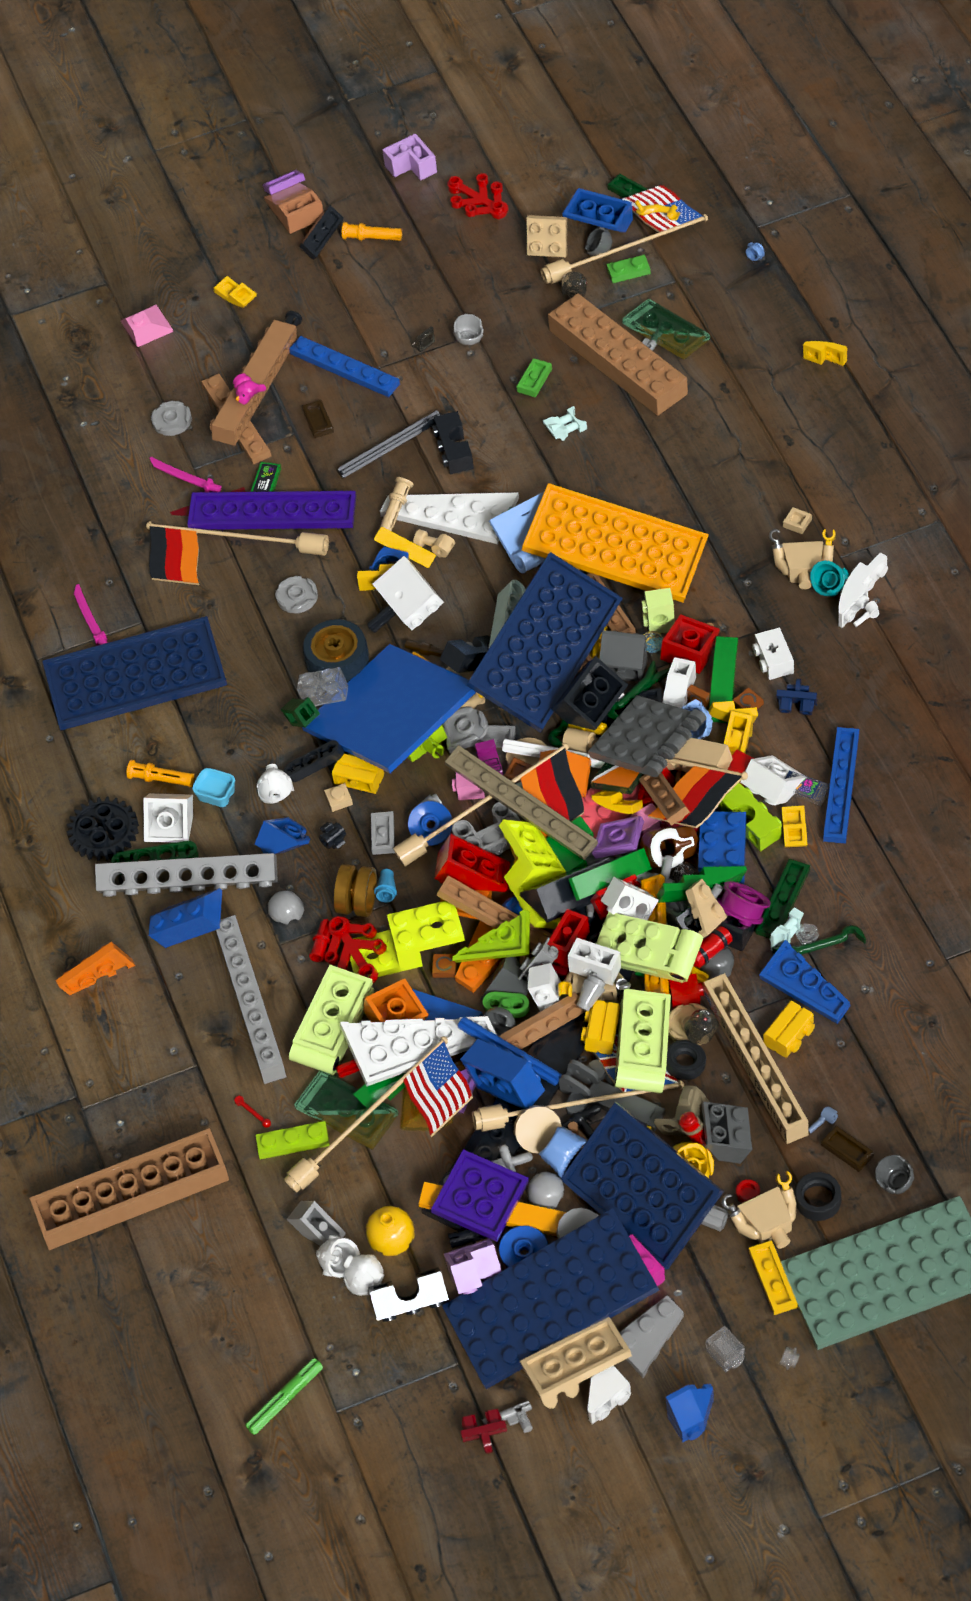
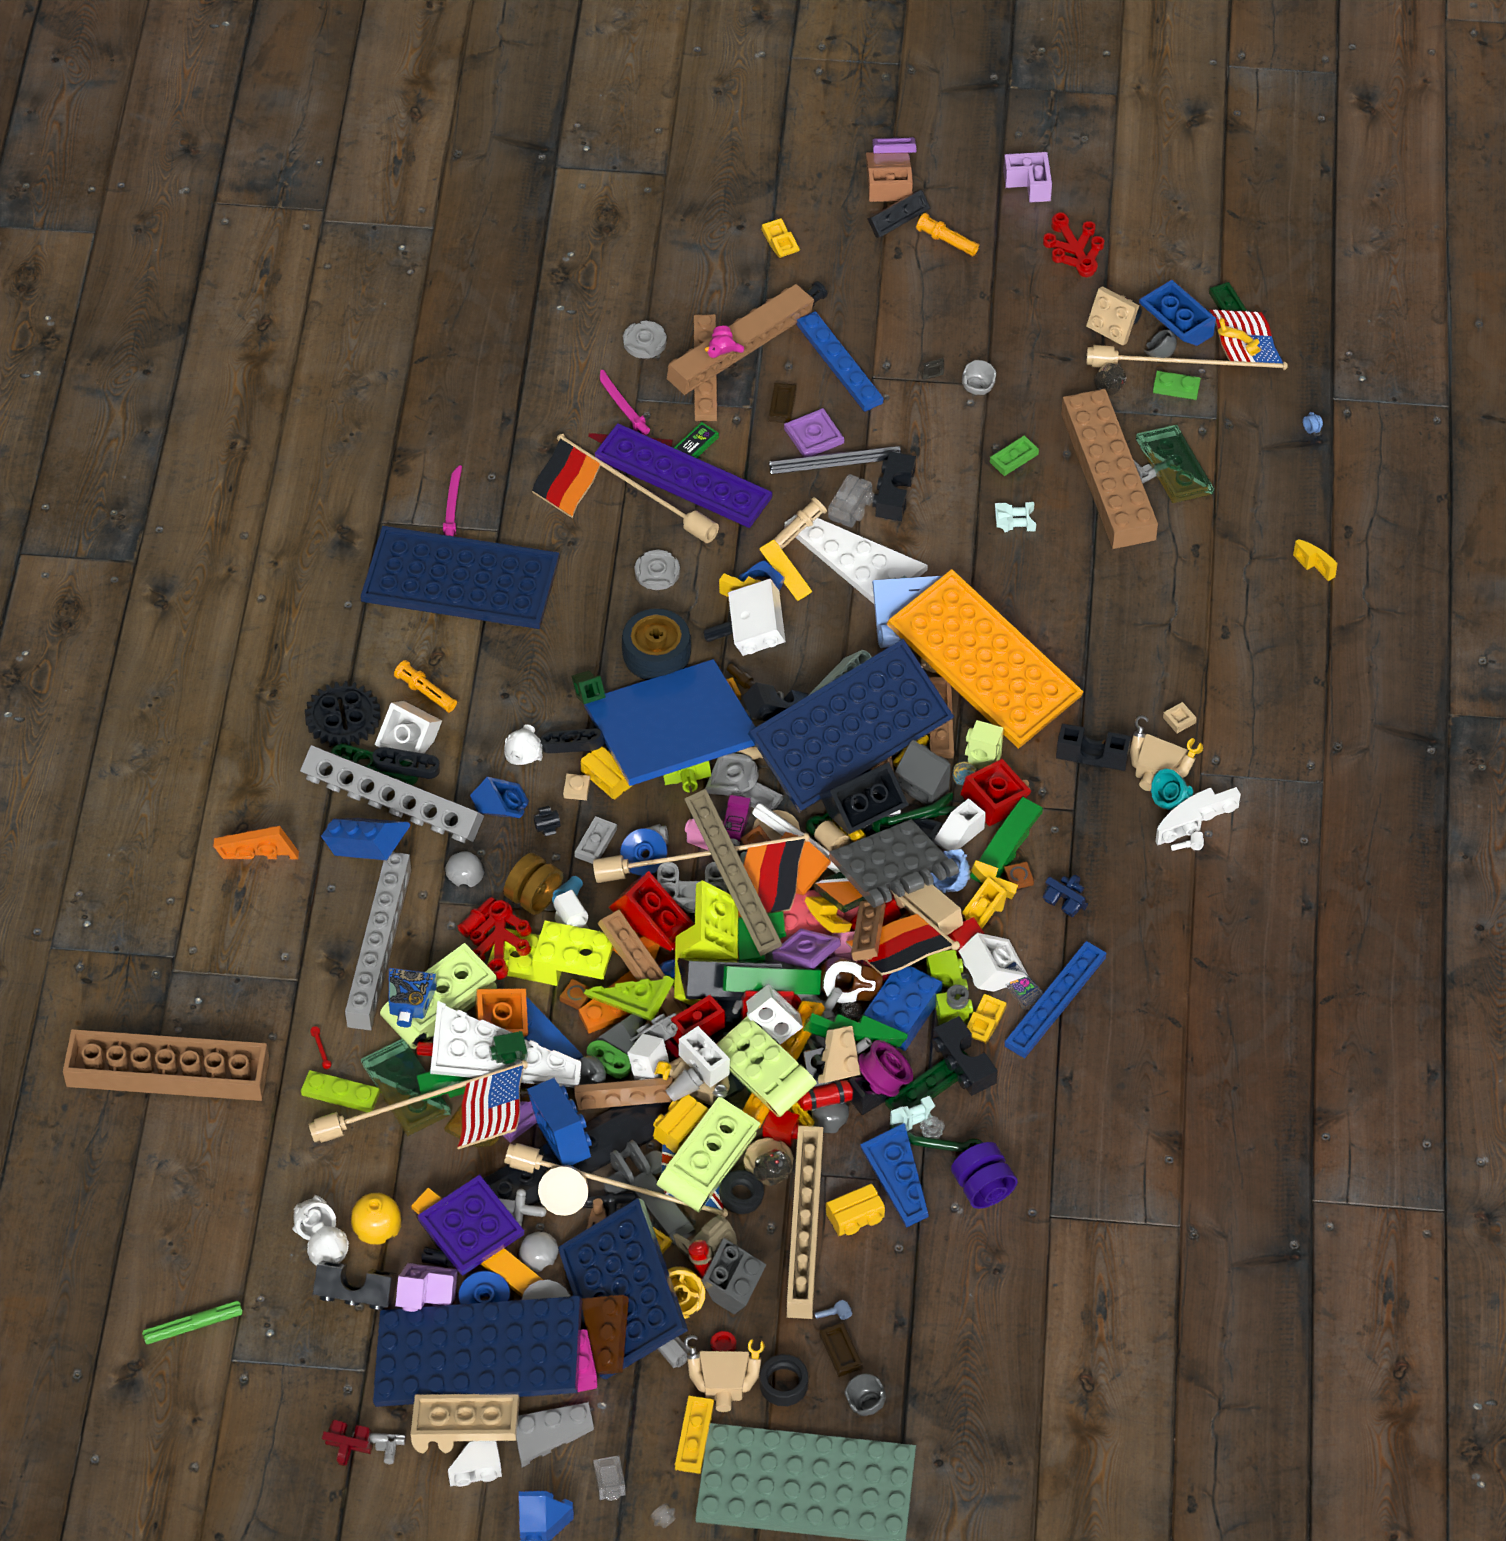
camera: 20 degrees right, 0 degrees up
(146, 325) = (677, 235): bright pink slope -> none
(170, 852) = (400, 755): none -> black beam
(214, 787) = (467, 722): medium azure piece -> none
(310, 1028) = (410, 994): none -> torso
(314, 1222) = (312, 1177): light grey slope -> none
(323, 686) = (623, 672): clear brick -> none
(358, 431) = (814, 433): none -> medium lavender tile
(402, 897) = (570, 910): none -> white brick
(424, 469) = (850, 501): none -> clear brick
(424, 1032) = (508, 1048): none -> dark green brick
(440, 546) = (819, 583): tan leg -> none
(478, 1032) = (593, 1123): blue axle -> none
(562, 1149) = (573, 1219): medium blue hair -> none
(648, 1224) = (606, 1330): none -> reddish brown wing
(696, 693) = (971, 848): dark orange tile -> none
(761, 572) = (1077, 747): none -> black arch
(766, 824) = (962, 1002): none -> dark grey bush
(773, 654) = (1071, 839): white brick -> none
(815, 873) = (972, 1072): none -> black arch
(878, 950) = (984, 1175): none -> dark purple wheel

